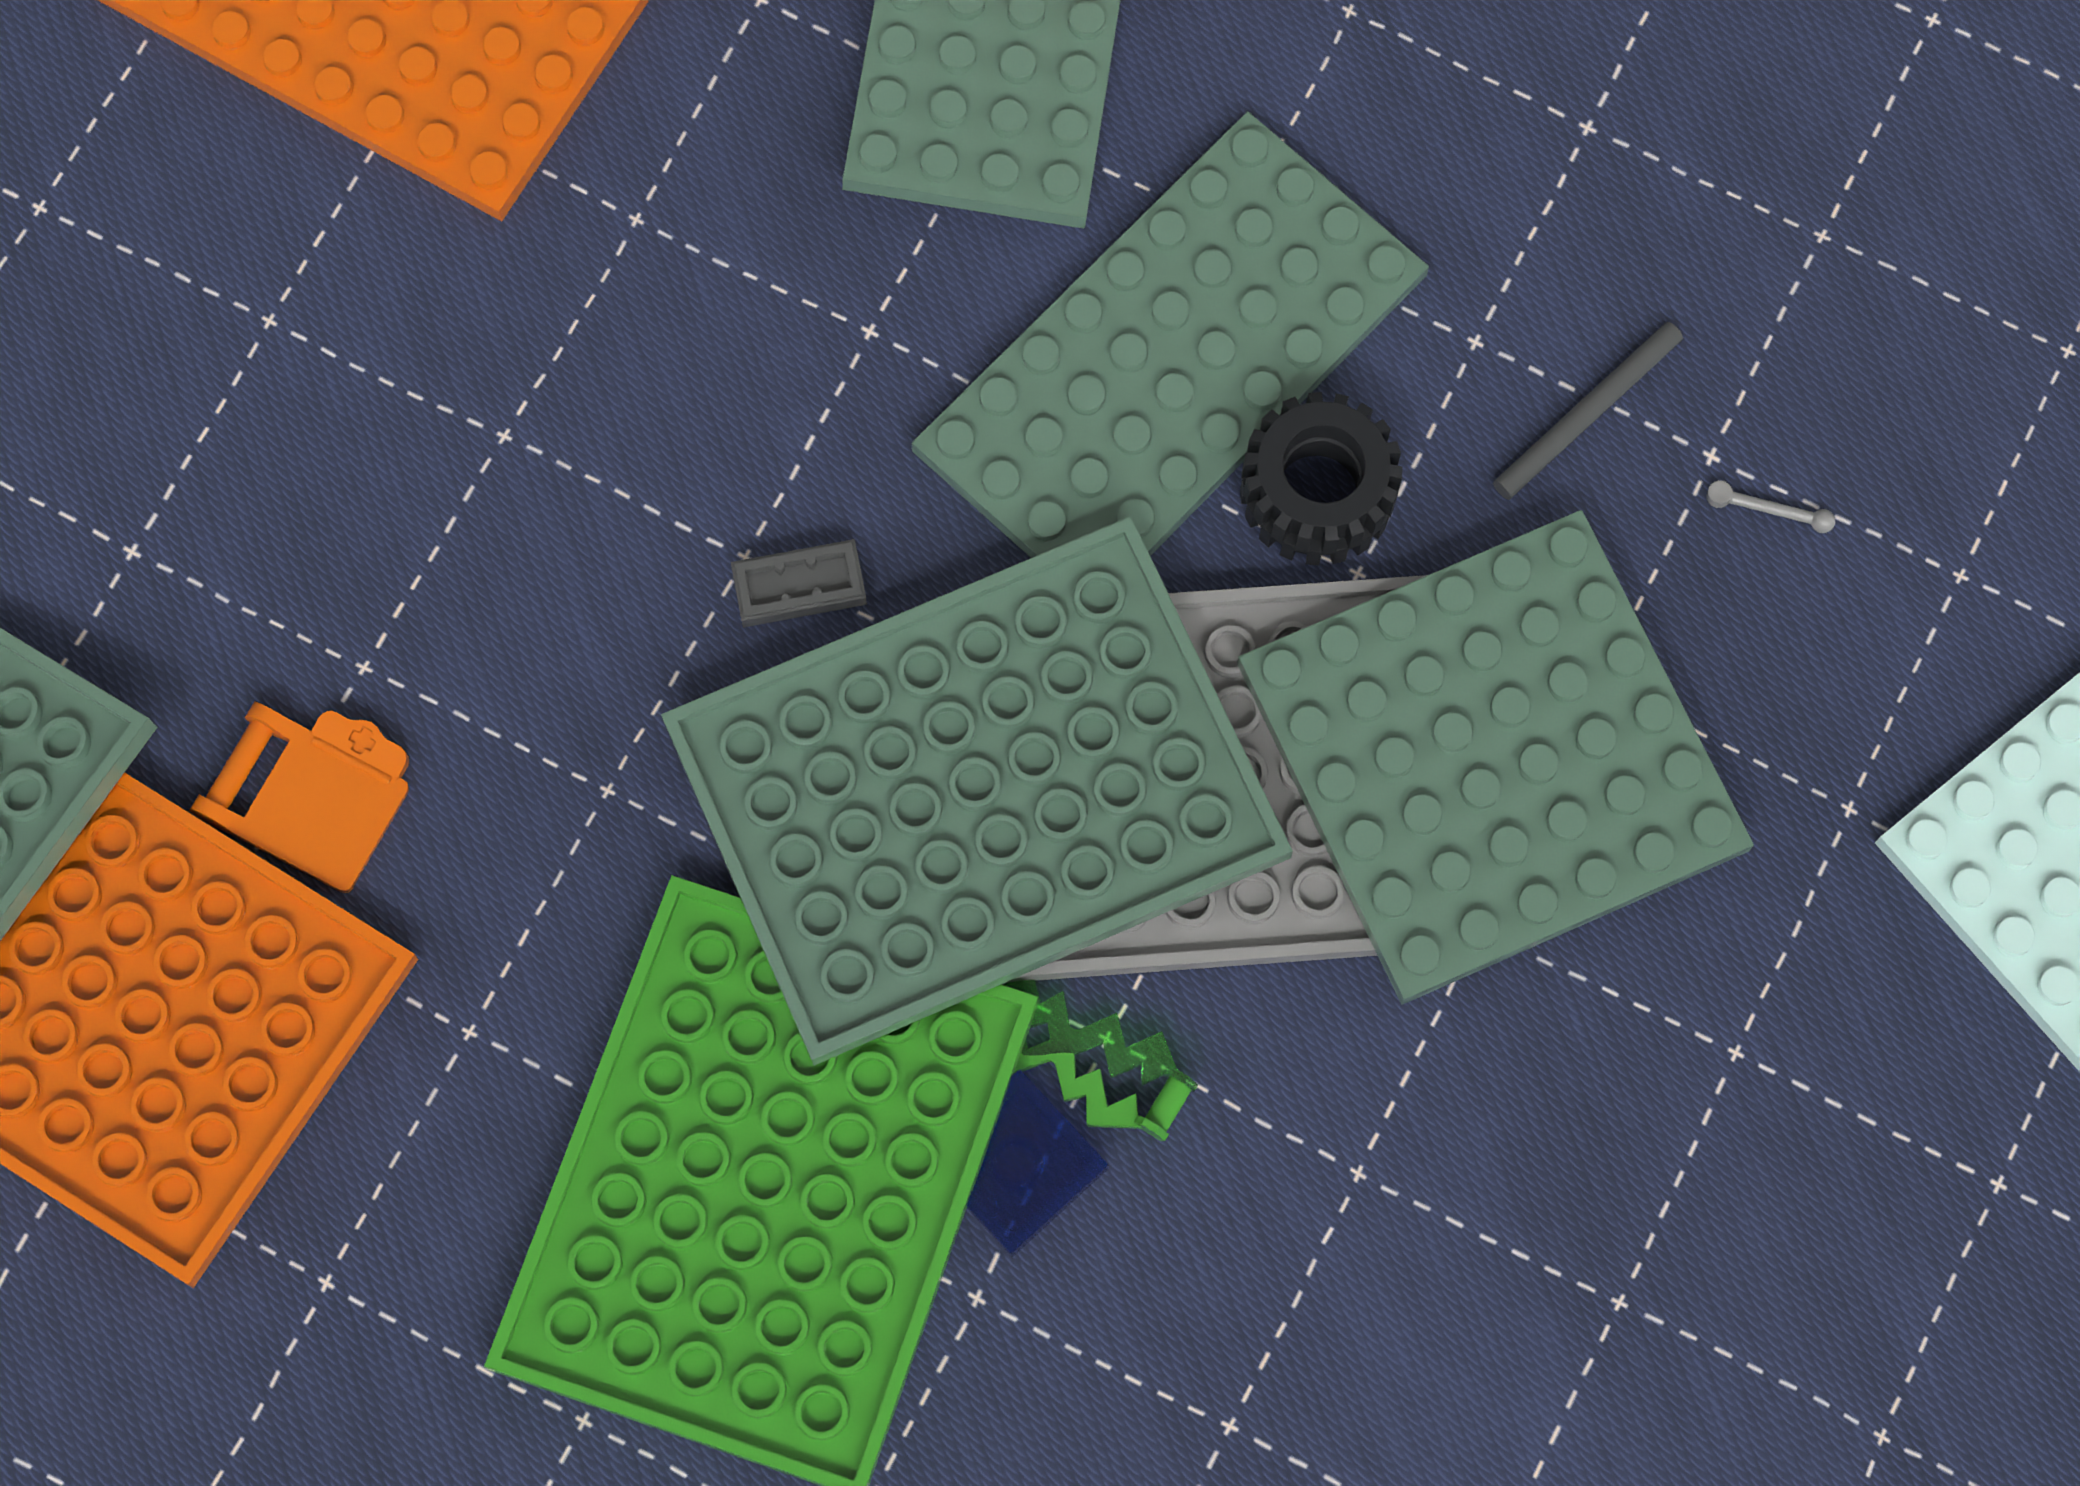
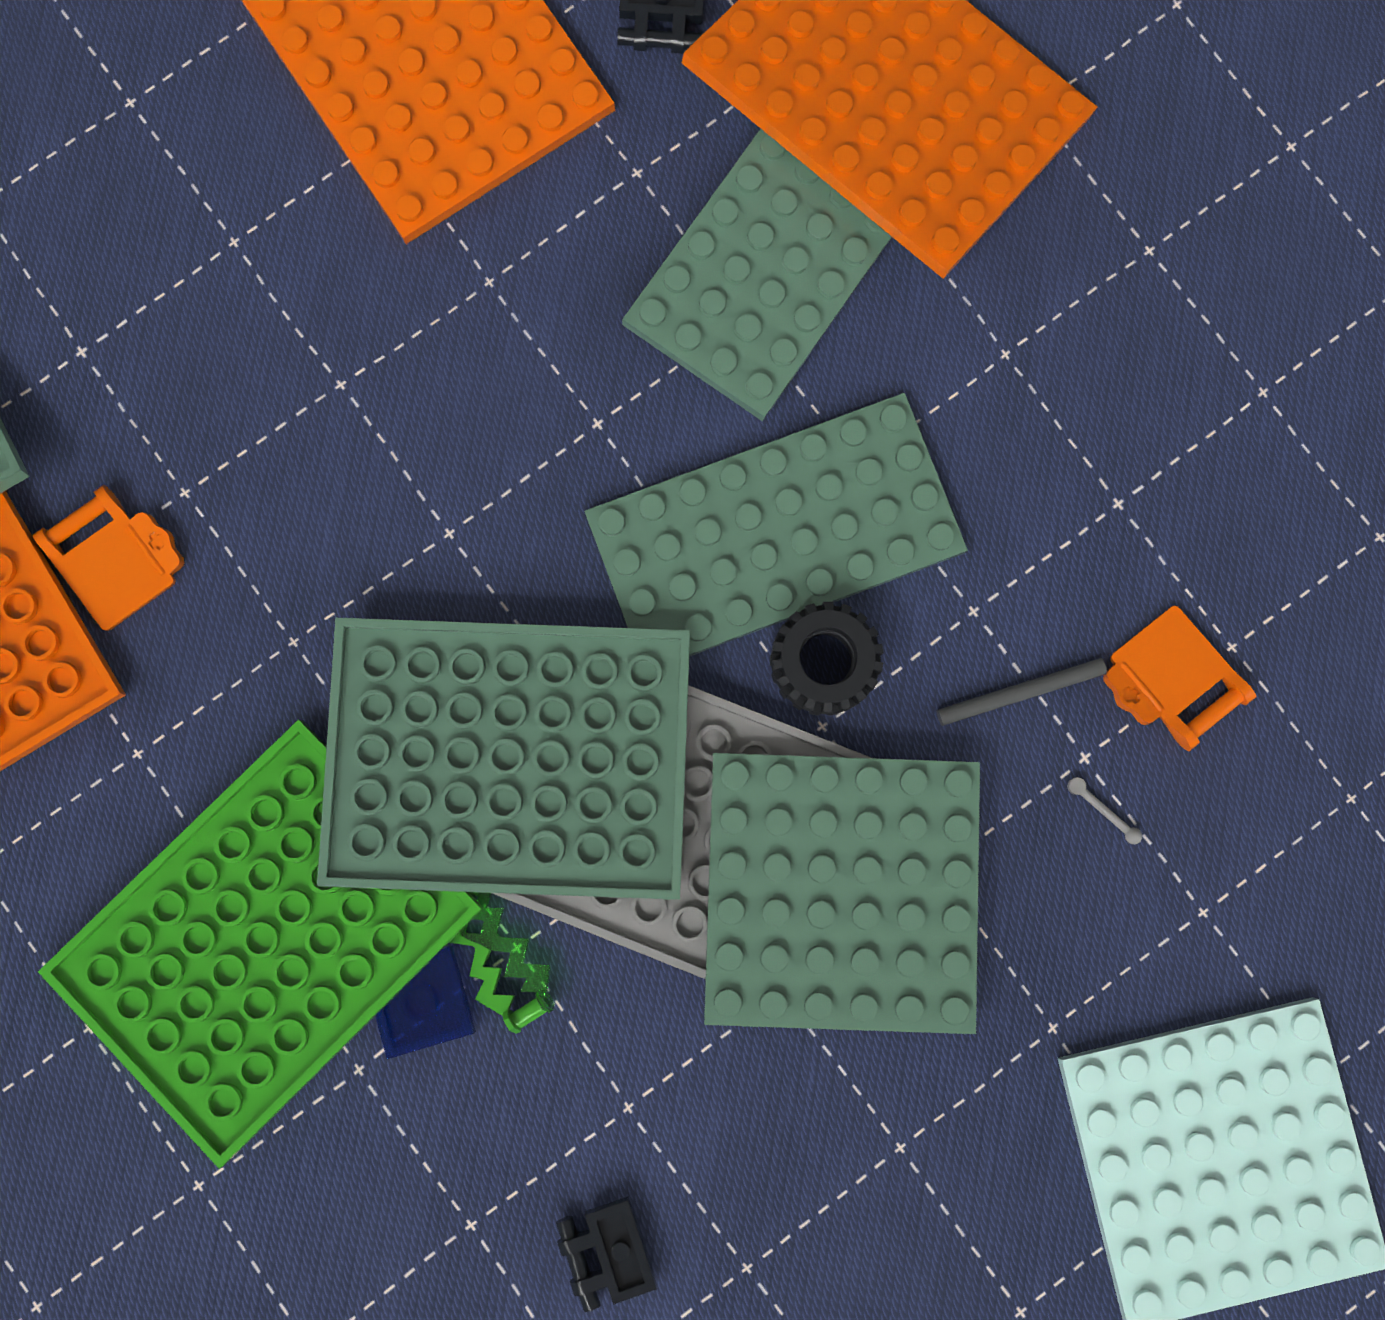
camera: 25 degrees right, 10 degrees up
(798, 583) = (469, 568): dark grey plate -> none
(1442, 1352) = (619, 1250): none -> black plate
(1758, 298) = (1170, 669): none -> orange piece

